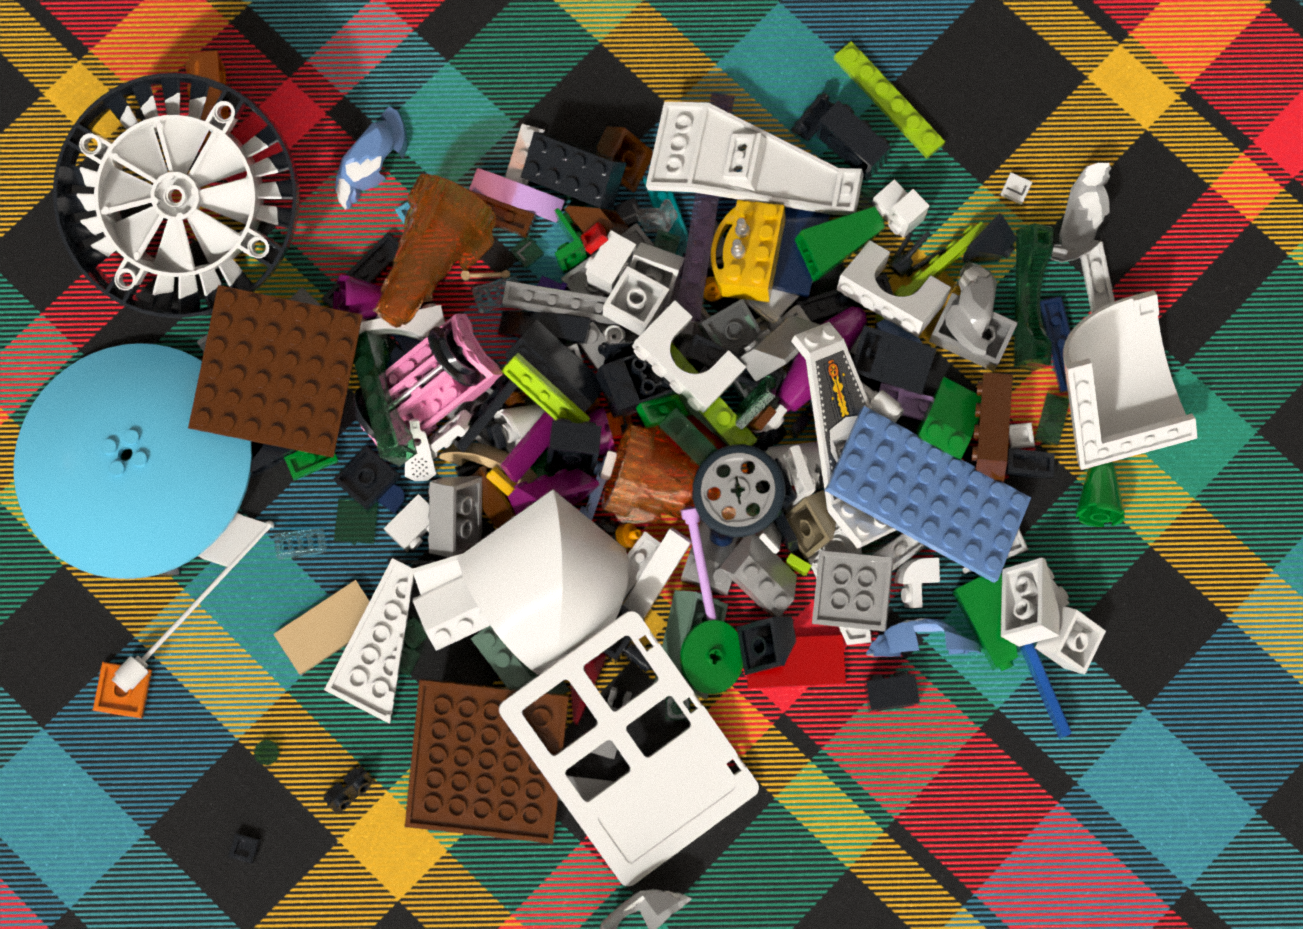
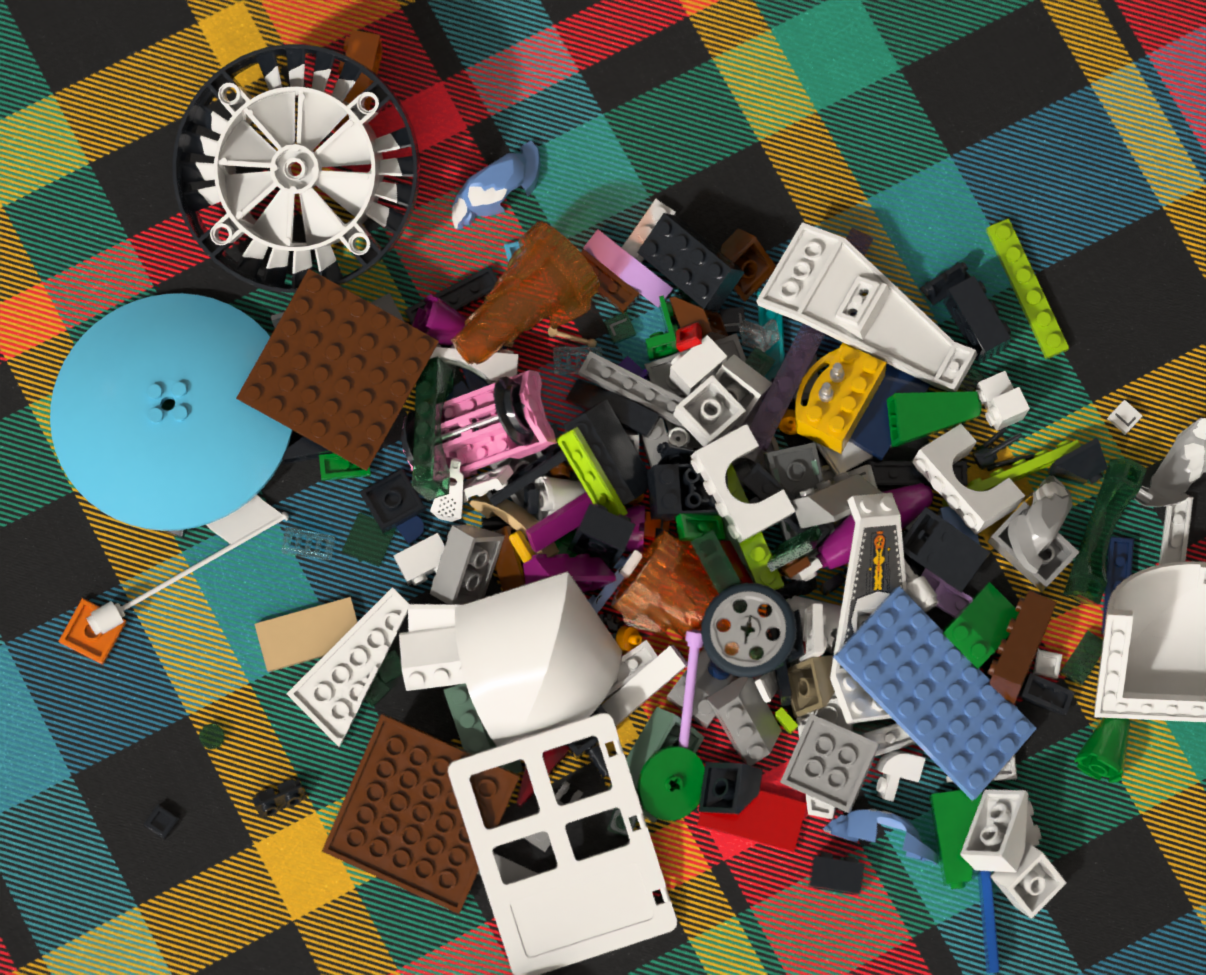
camera: 15 degrees right, 0 degrees up
(412, 562) = (411, 597): black hinge -> none

